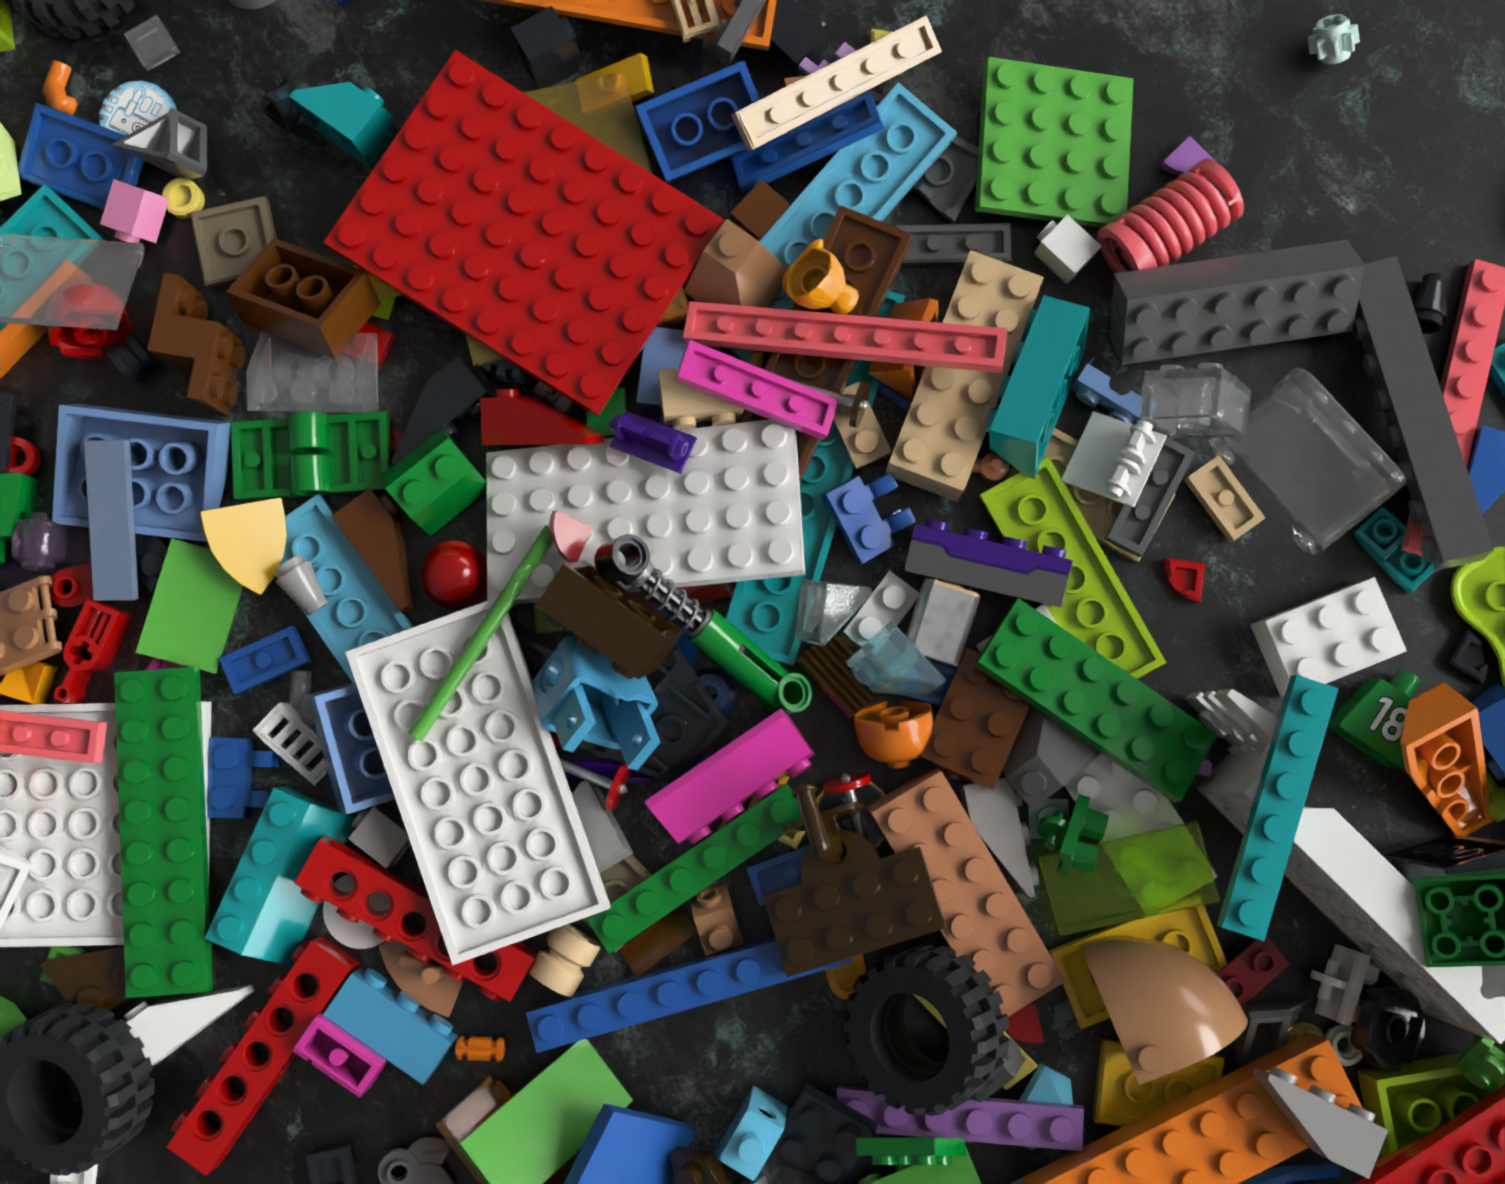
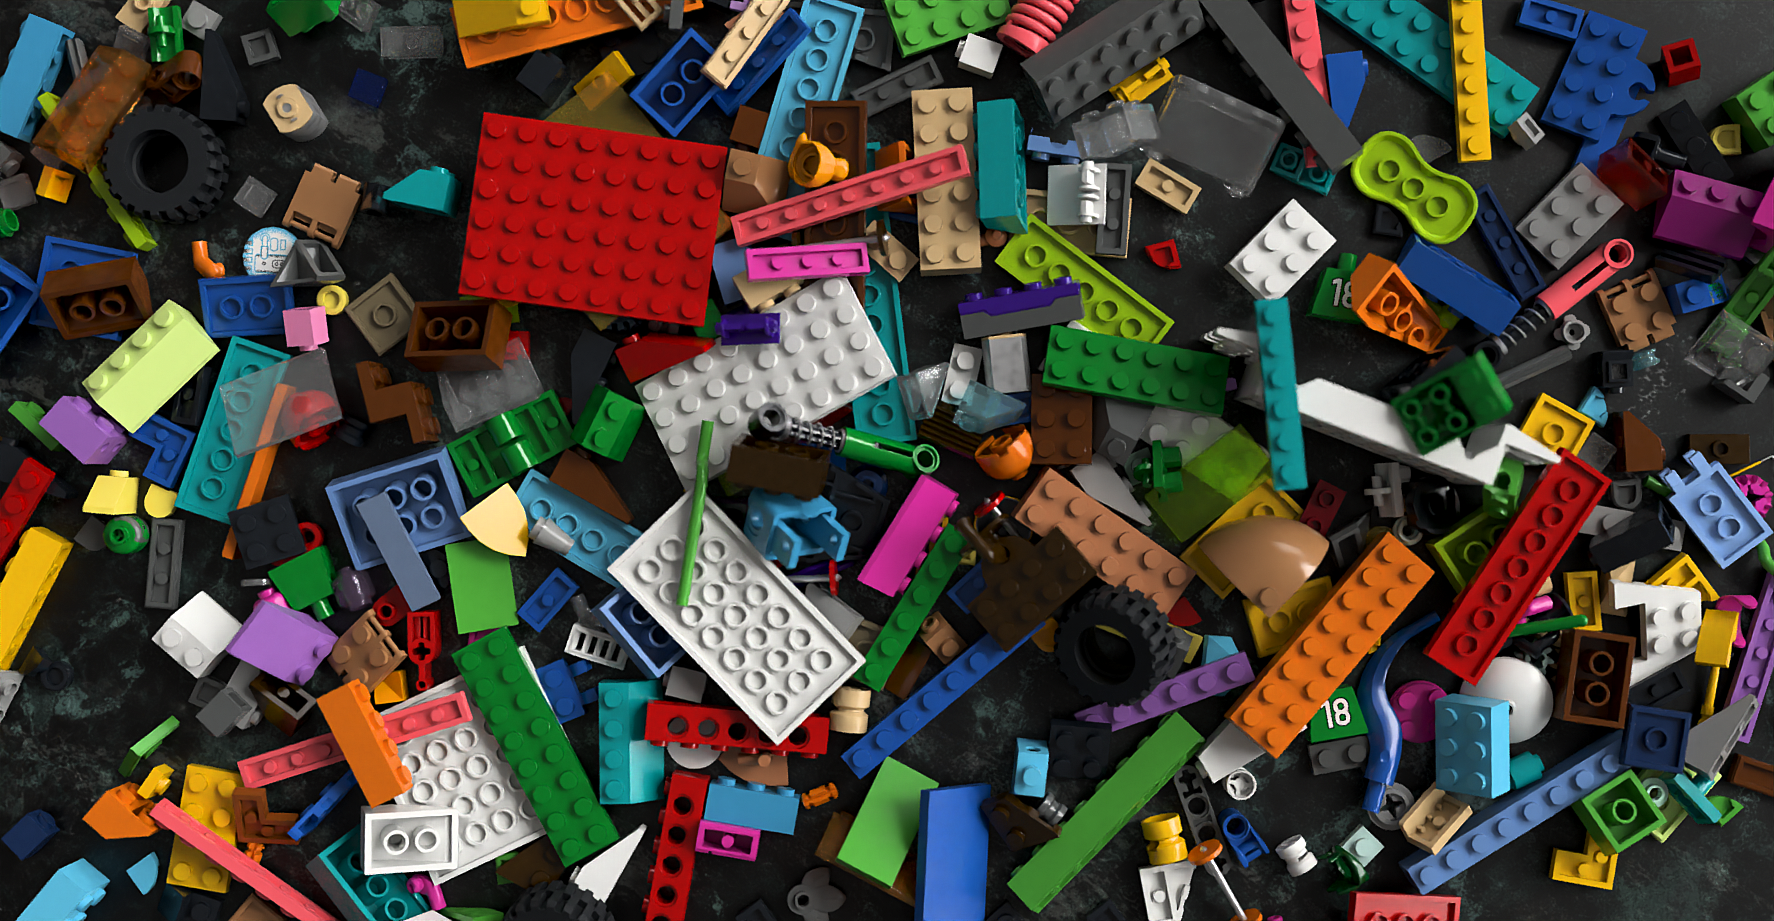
camera: 20 degrees left, 5 degrees up
(227, 83) = (324, 204): none -> medium nougat plate
(454, 575) = (652, 481): red helmet -> none
(568, 535) = (722, 421): tile -> none
(858, 518) = (916, 316): blue plate -> none
(911, 1150) = (1136, 730): green plate -> none
(1251, 362) = (1143, 82): none -> yellow hinge
(1329, 1130) = (1409, 591): light grey slope -> none

